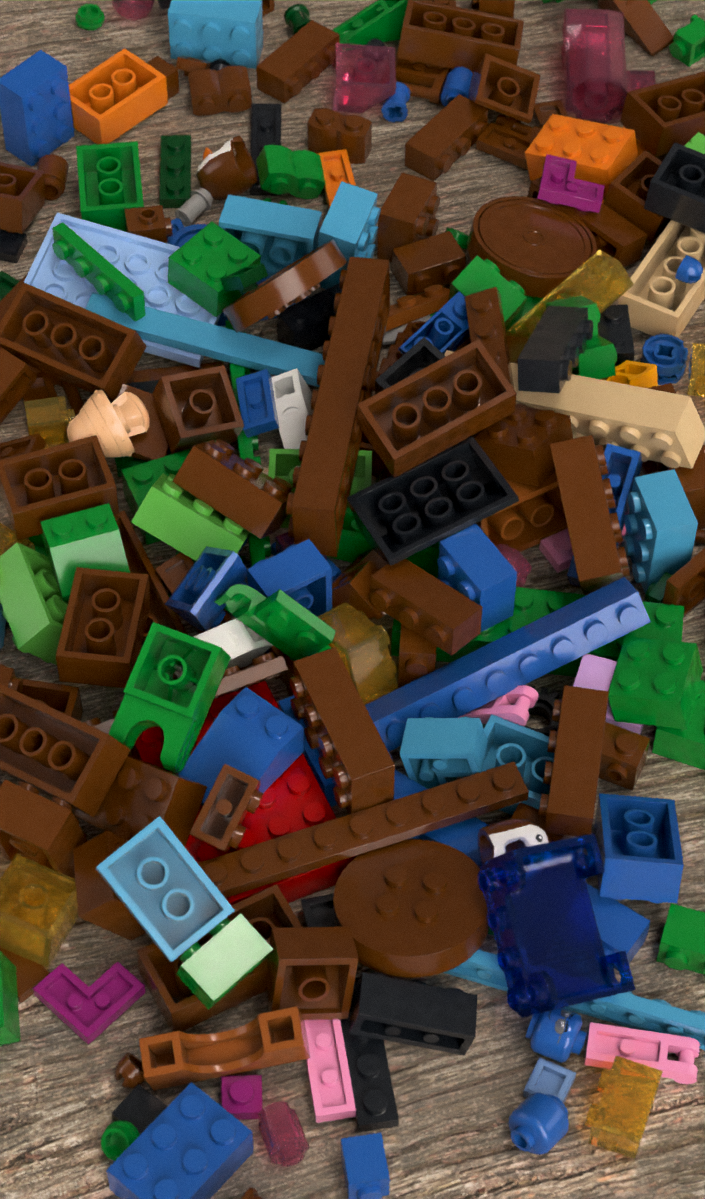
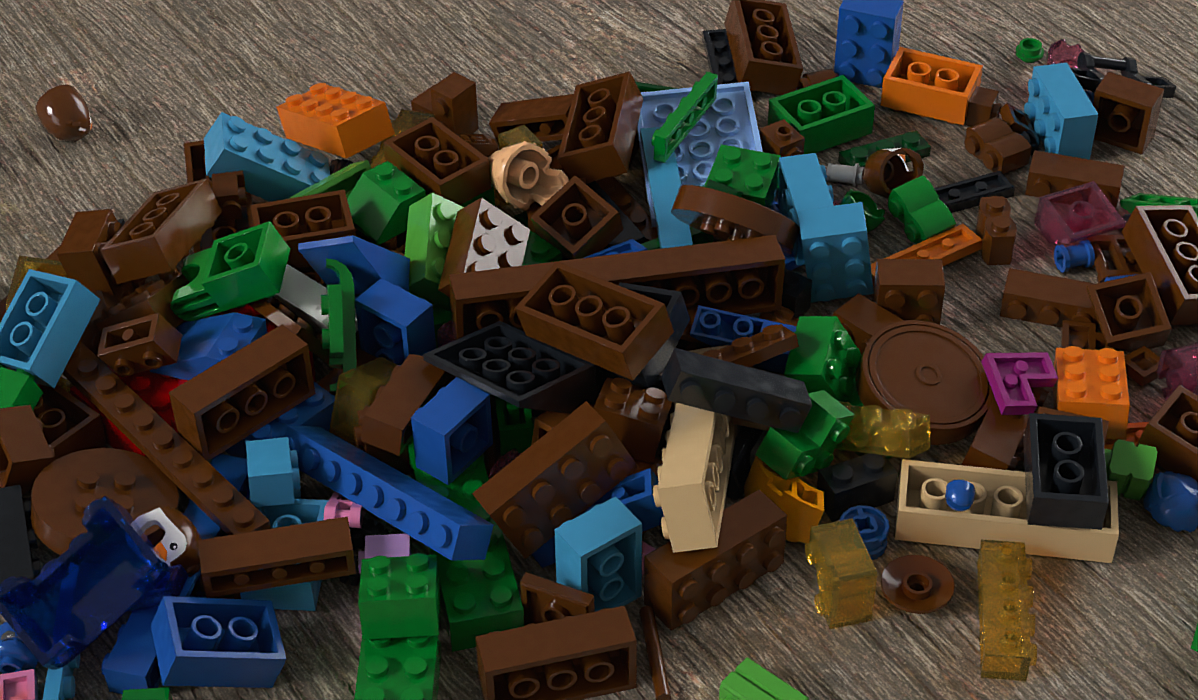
camera: 70 degrees right, 10 degrees down
(294, 19) = (1132, 168): dark green bush -> none
(622, 756) = (336, 612): reddish brown brick -> none

